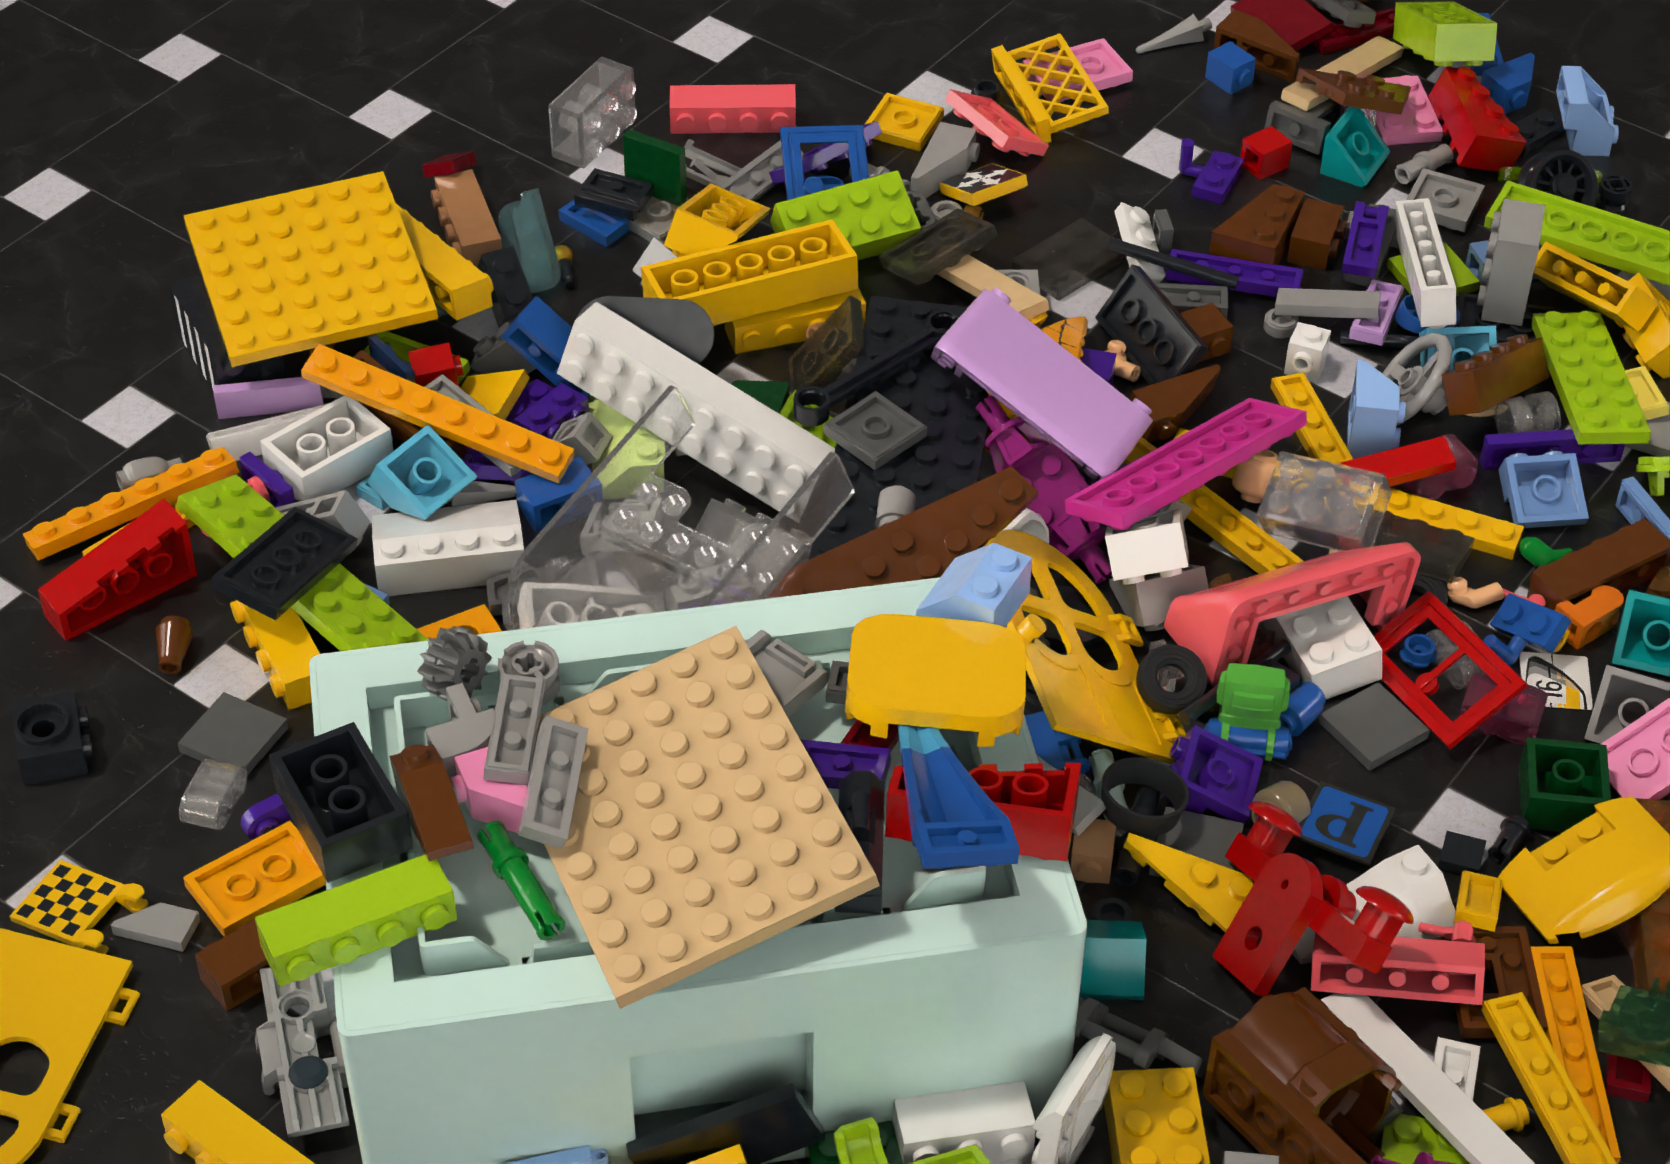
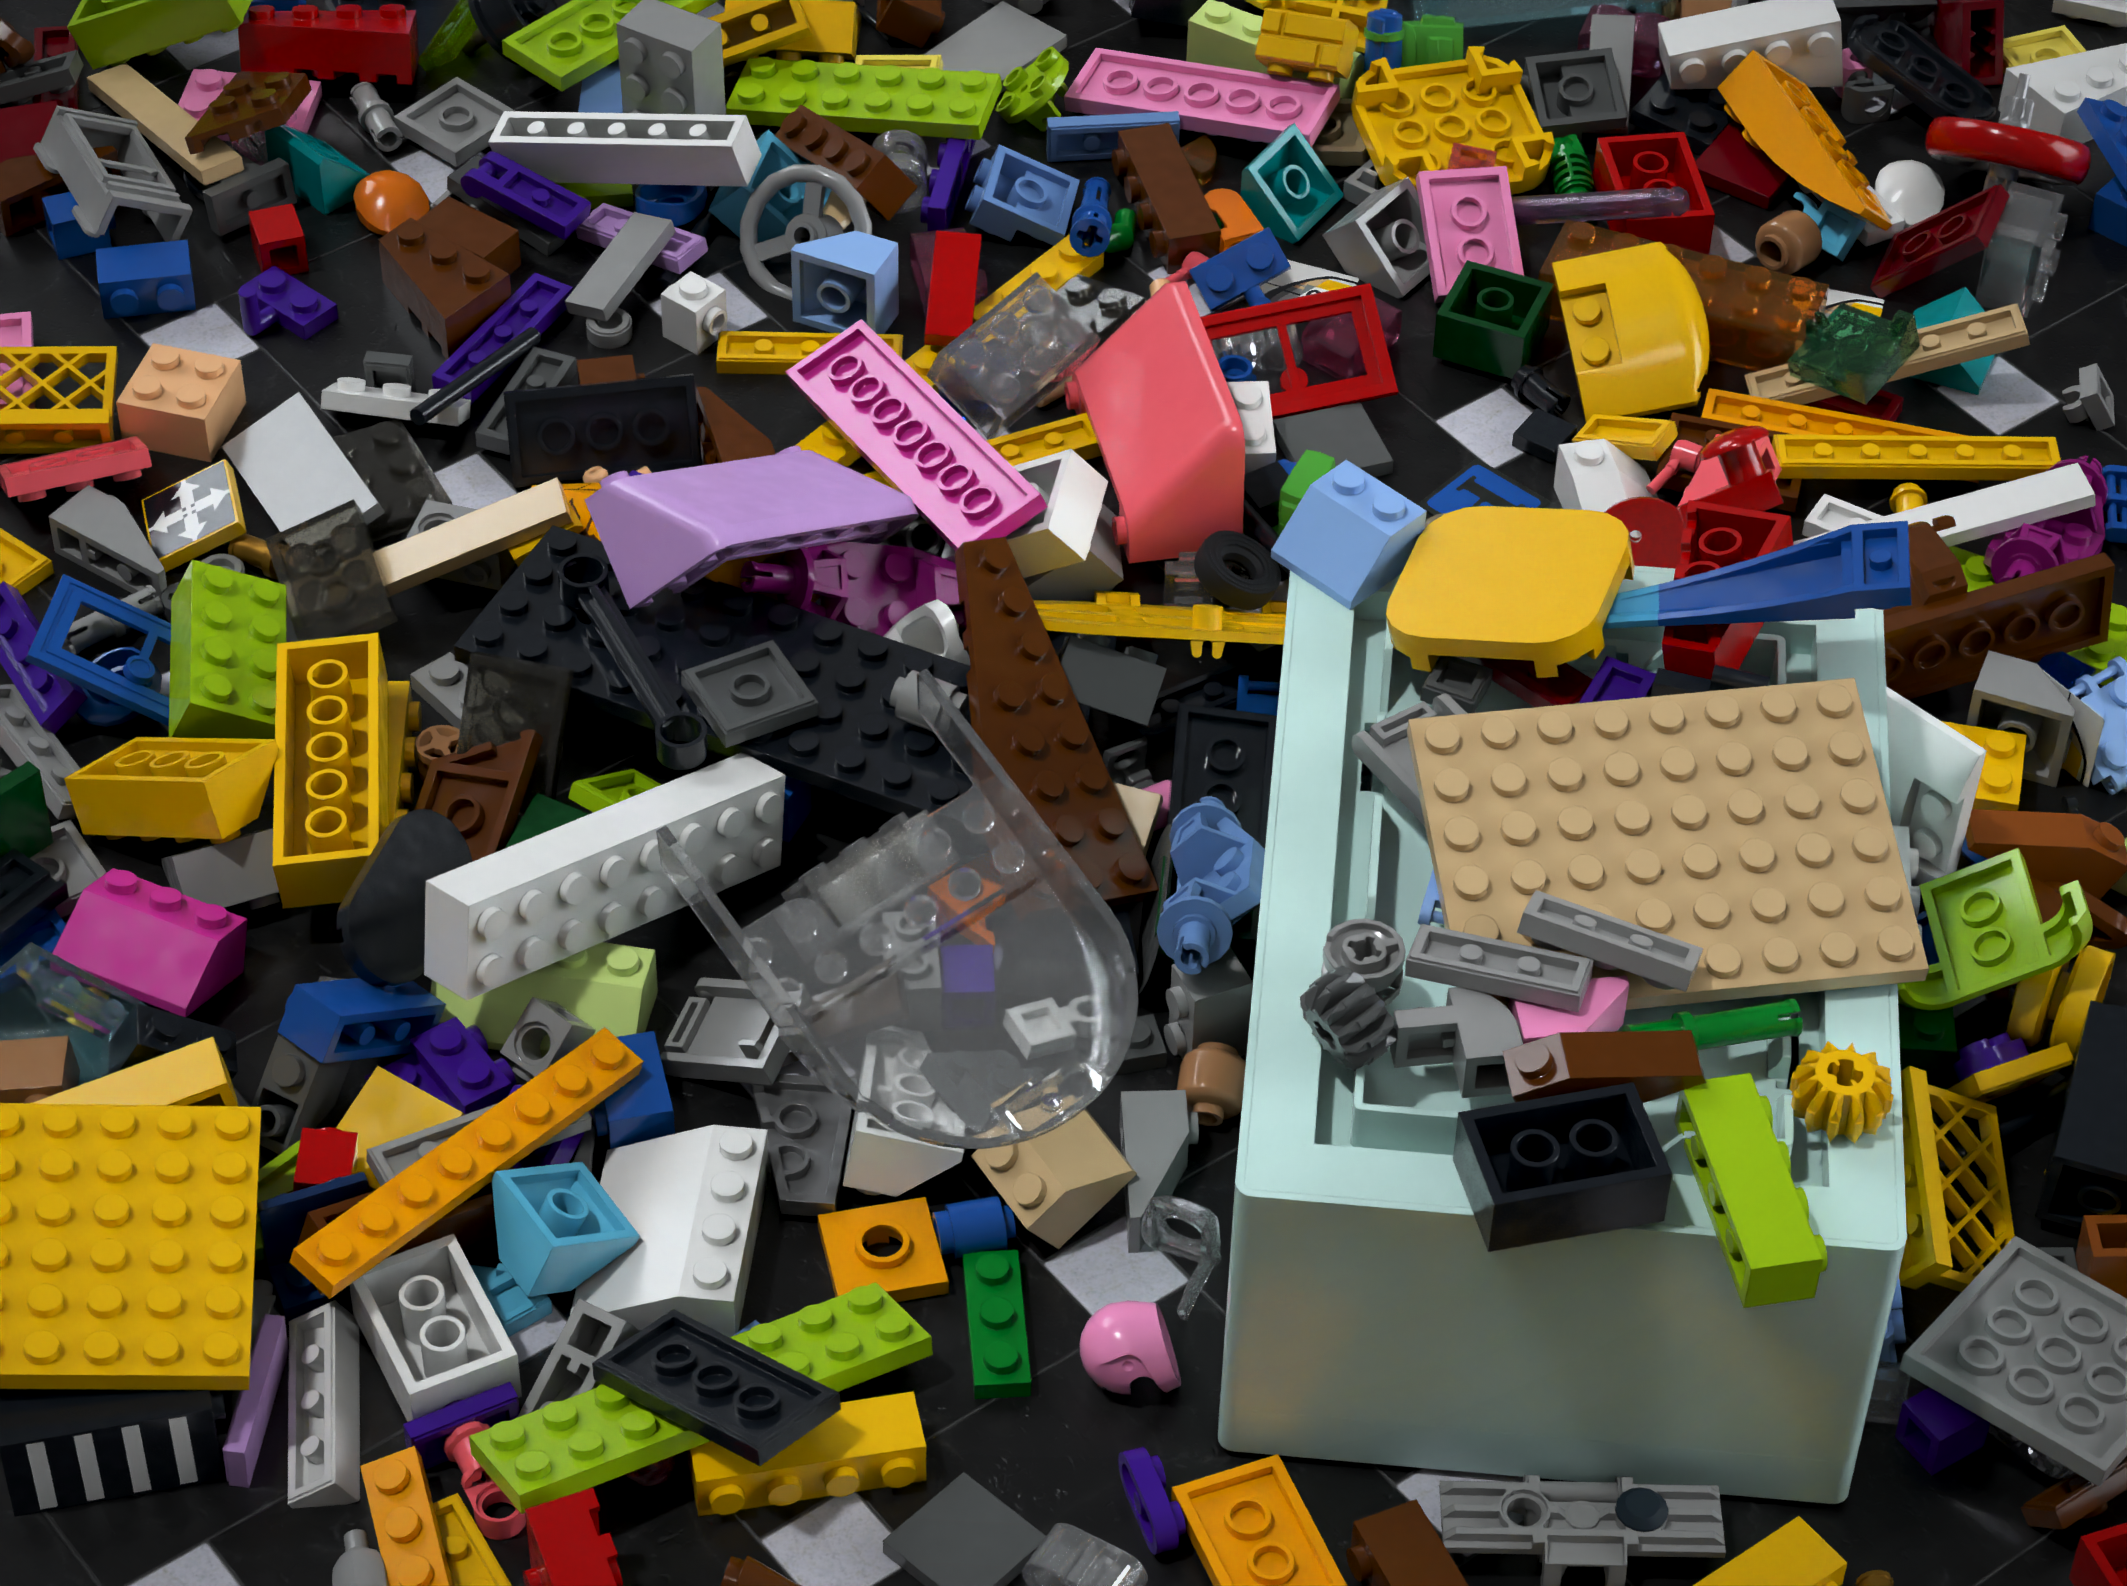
camera: 75 degrees left, 0 degrees up
(471, 962) = (1841, 1092): none -> yellow gear
(600, 257) = (154, 942): none -> dark pink slope
(767, 358) = (482, 790): none -> reddish brown wing
(1044, 219) = (297, 466): none -> tile
(1084, 151) = (182, 401): none -> light nougat brick
(1194, 109) = (145, 279): none -> blue brick
(1250, 76) = (146, 186): none -> light grey piece
(1343, 189) = (388, 200): none -> orange hat
(1528, 526) = (1092, 214): none -> blue pin

